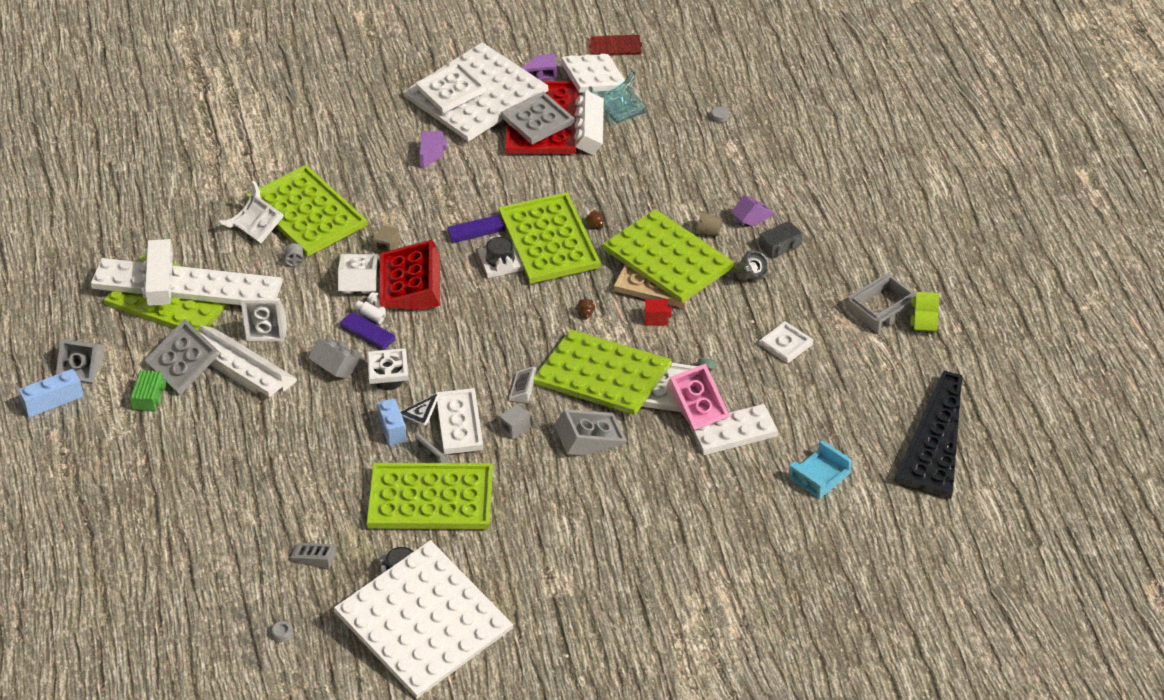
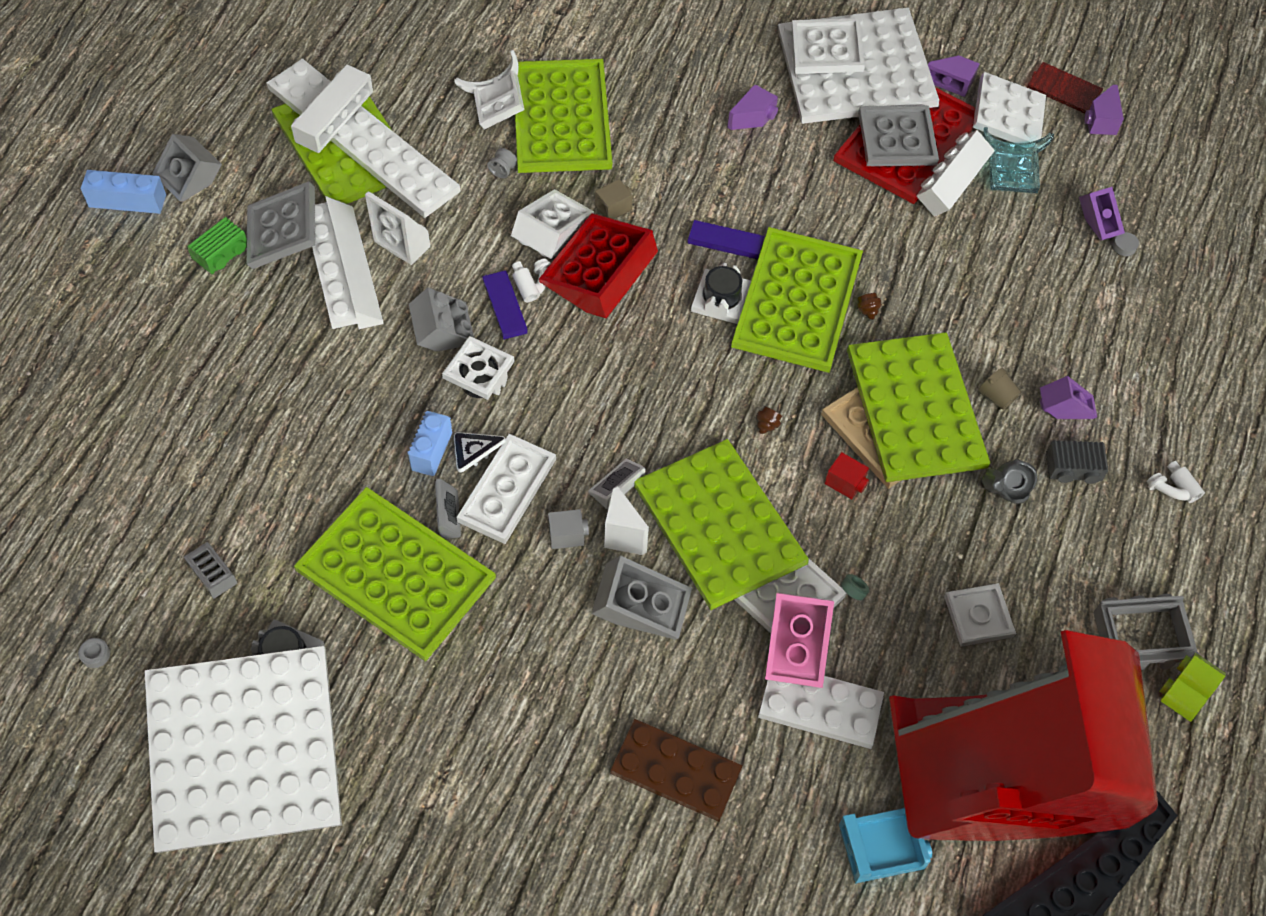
camera: 30 degrees right, 15 degrees up
(550, 397) = (624, 526): none -> white slope
(653, 47) = (1105, 113): none -> medium lavender slope
(679, 500) = (676, 770): none -> reddish brown plate
(694, 102) = (1102, 213): none -> medium lavender slope
(848, 221) = (1187, 486): none -> white plant
(871, 373) = (1034, 757): none -> red piece

